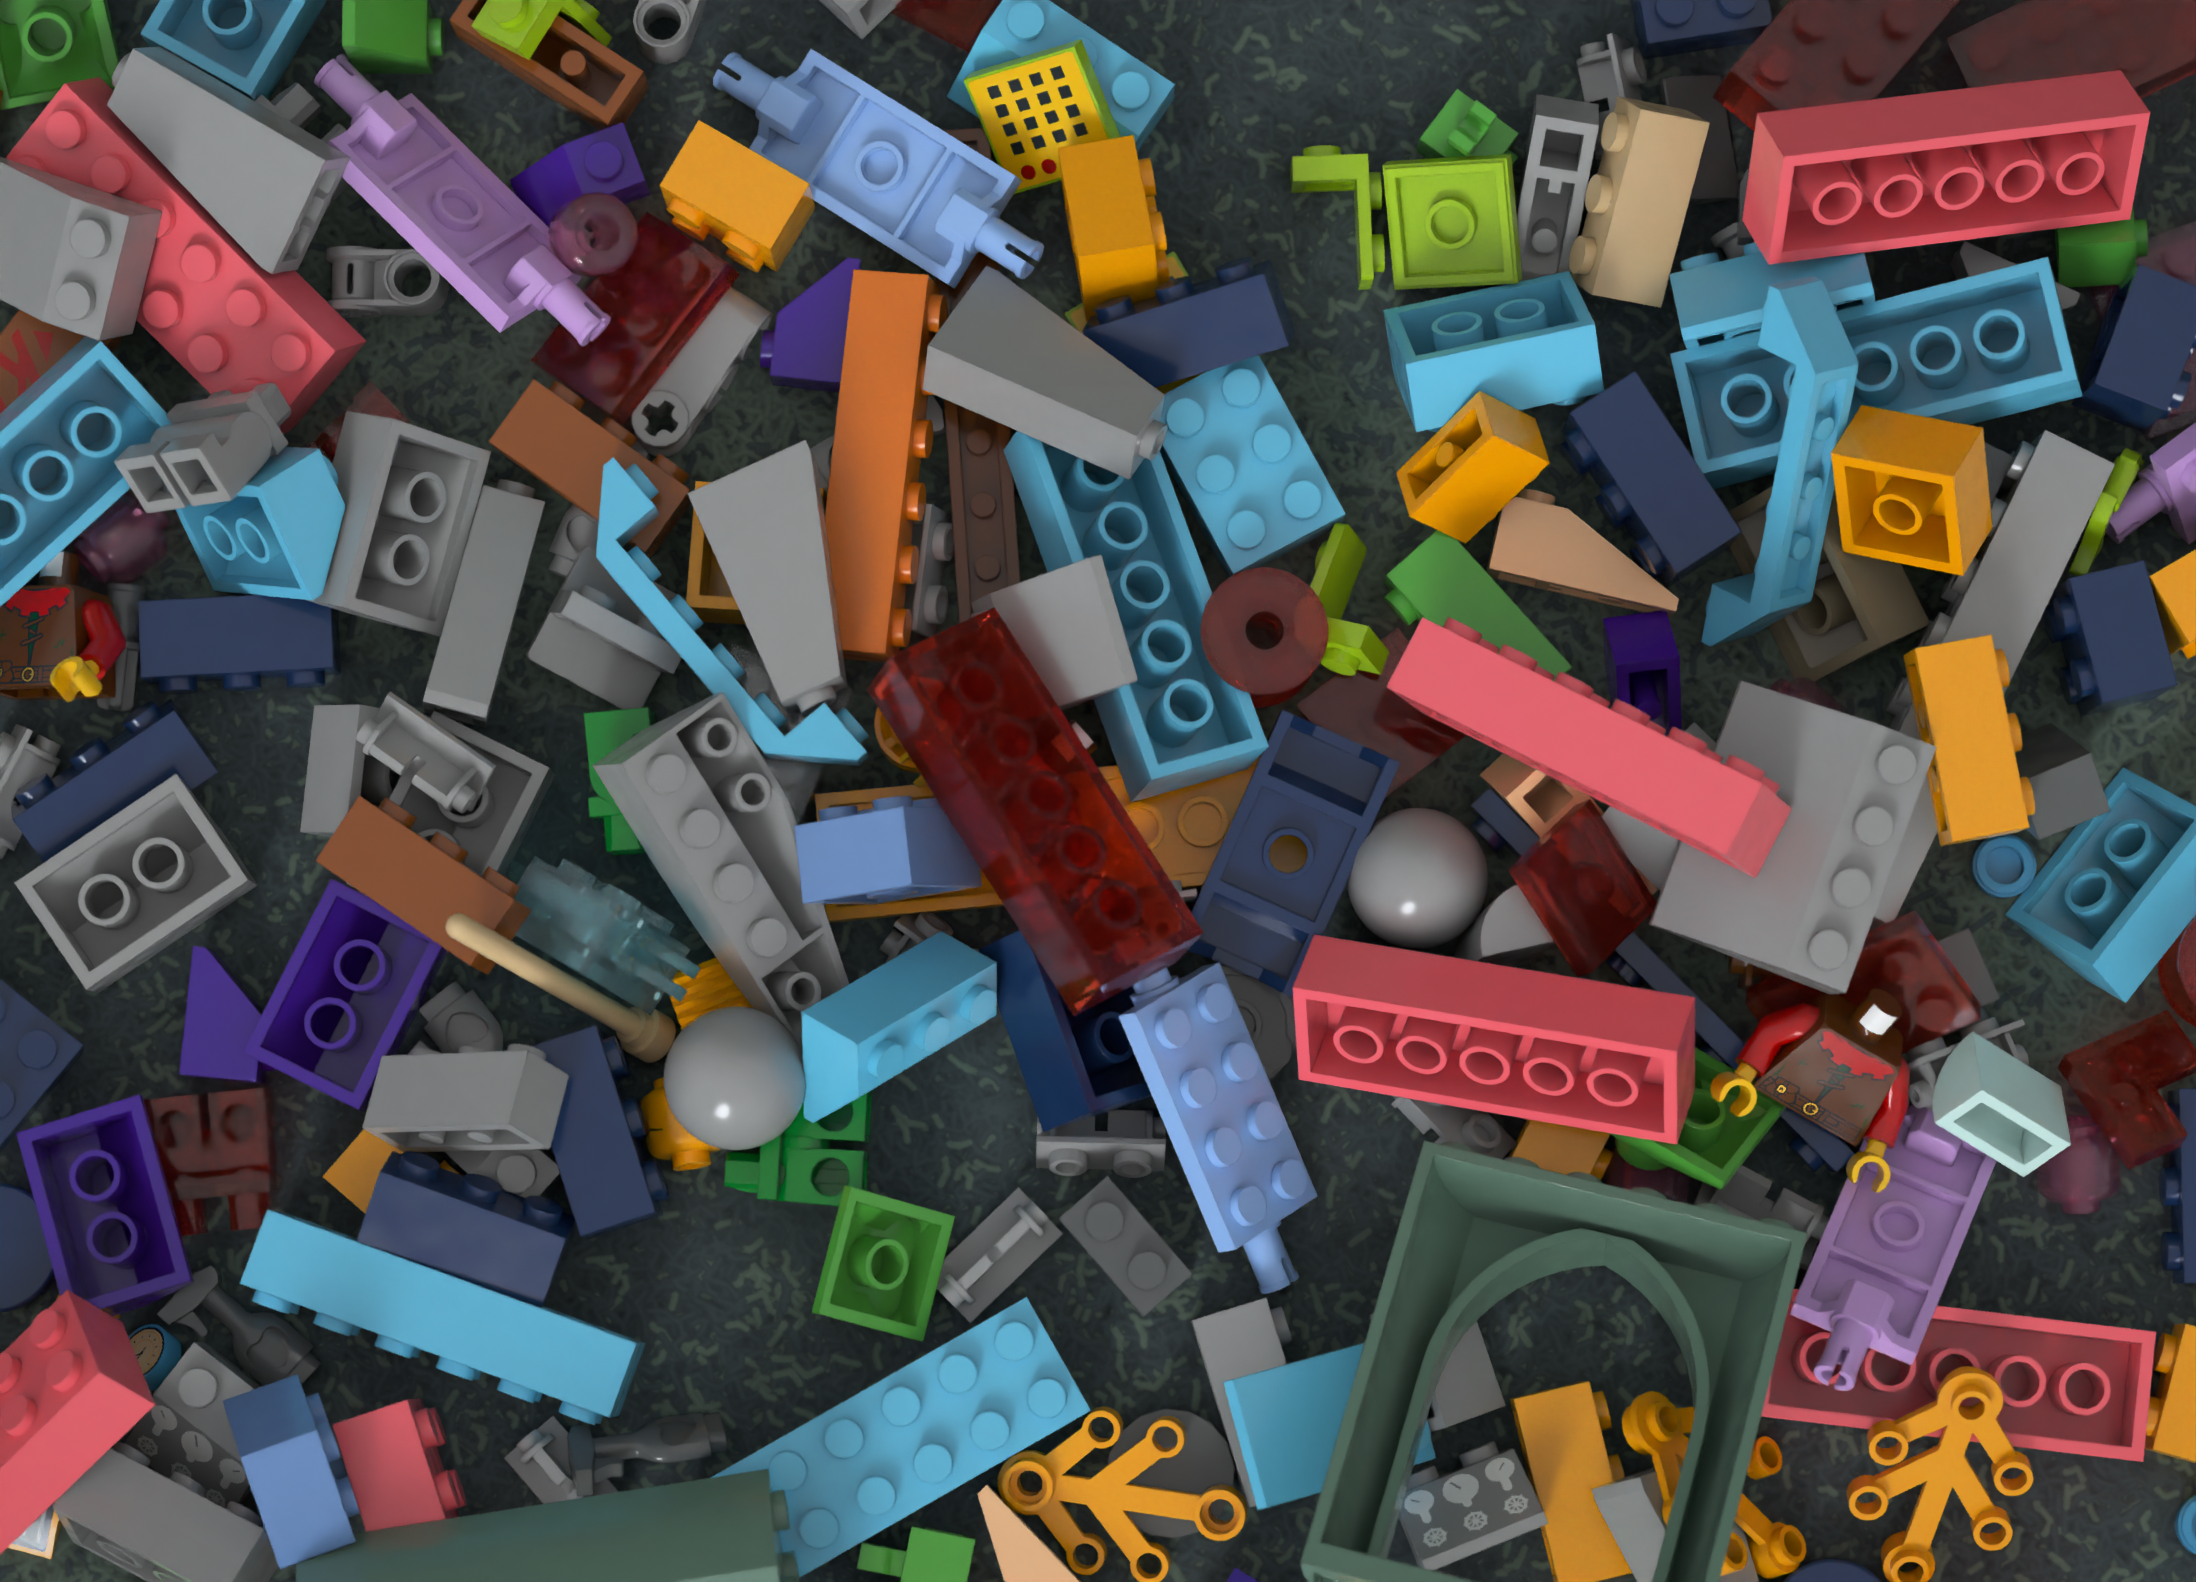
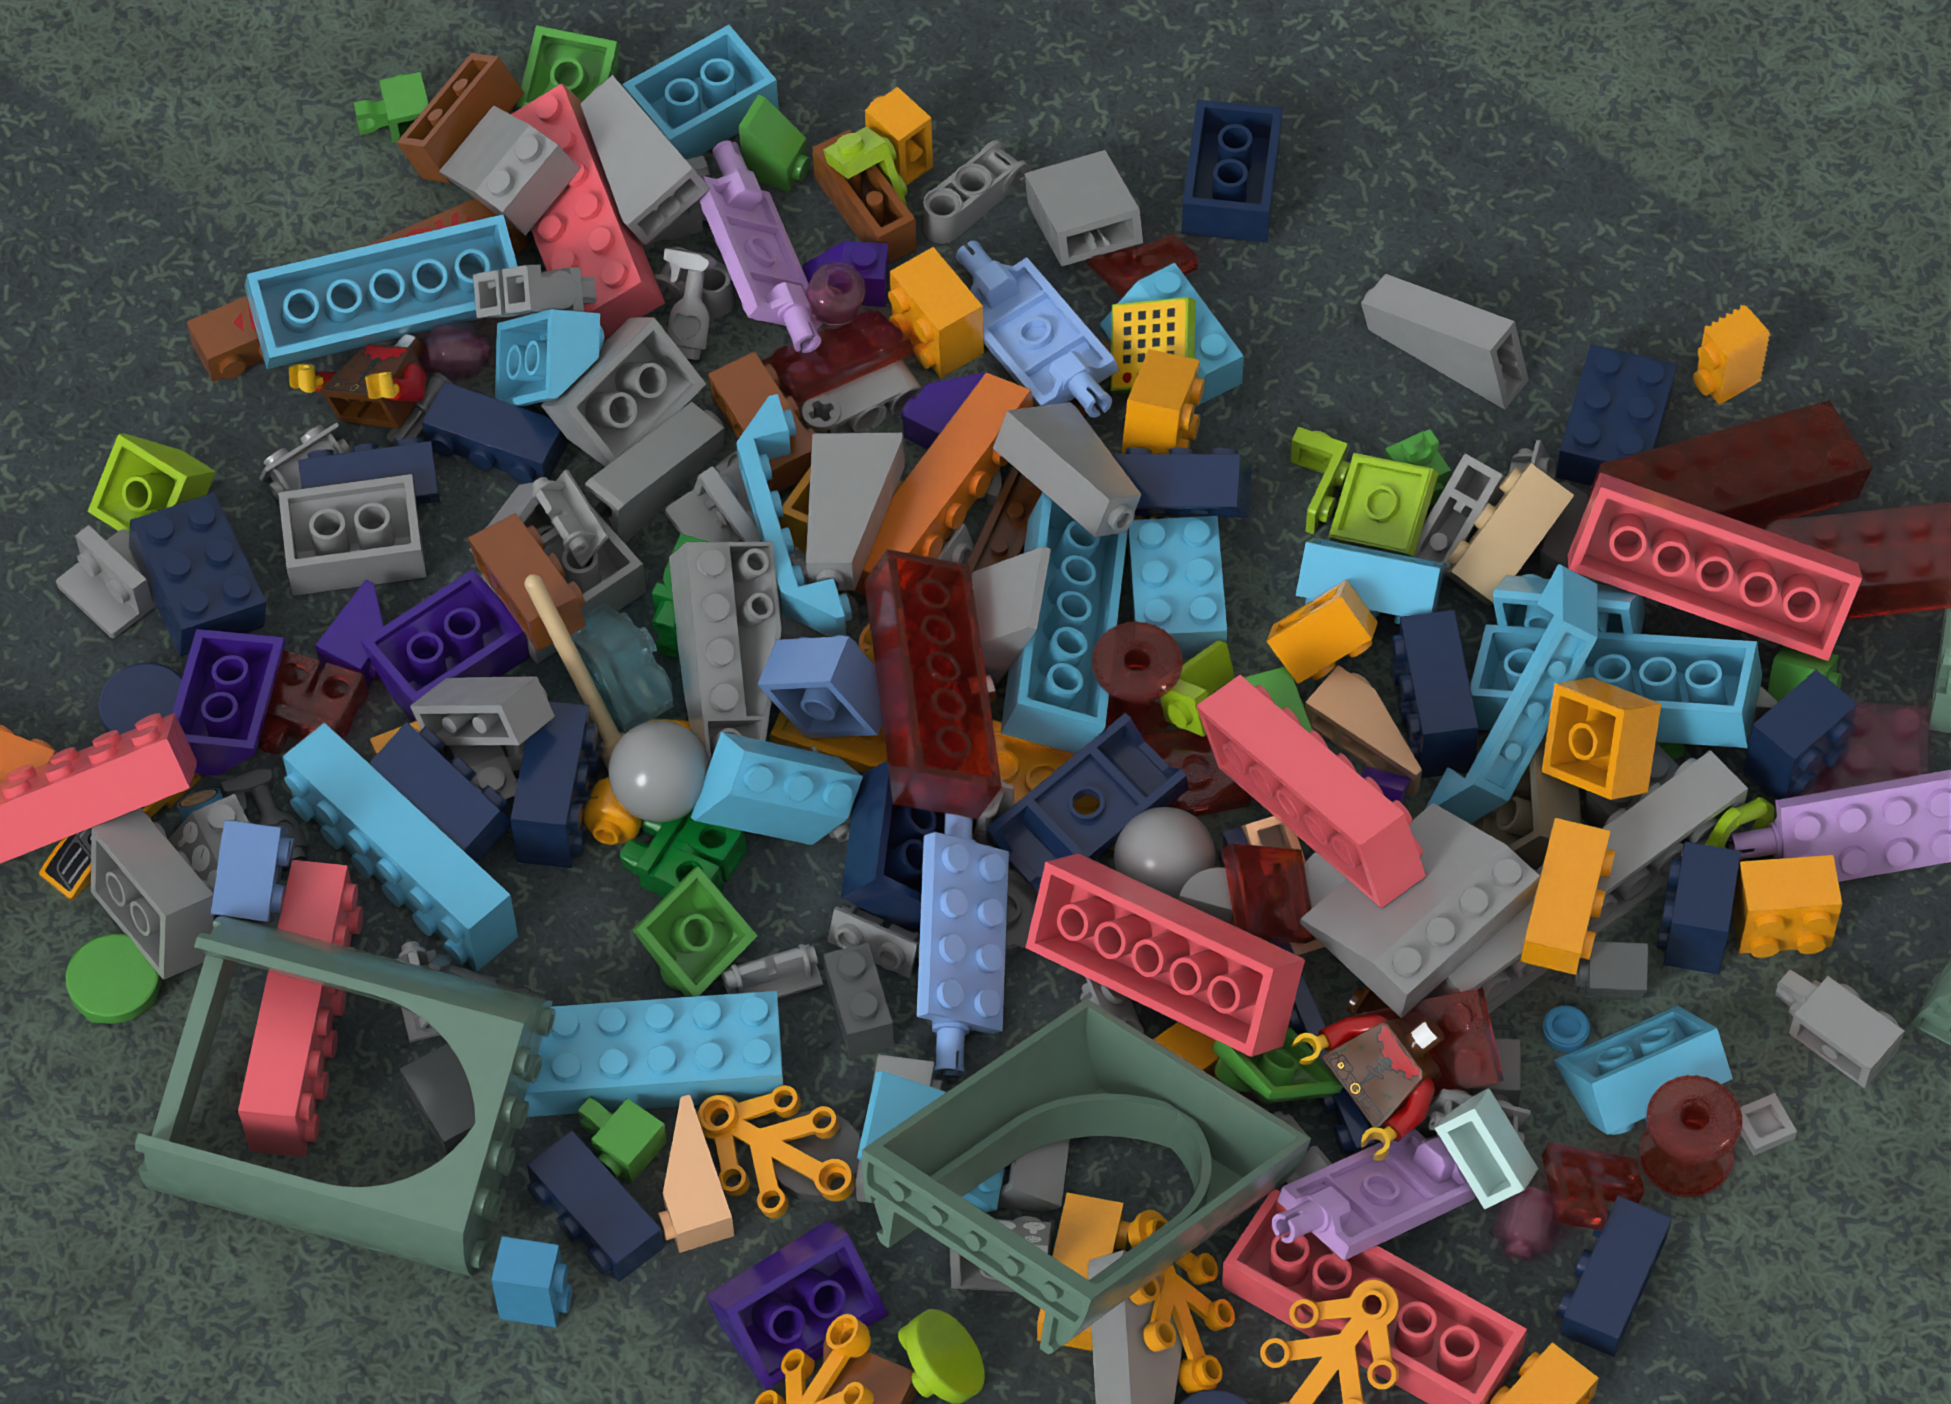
camera: 30 degrees right, 25 degrees down
(407, 347) = (689, 316): none -> light grey piece

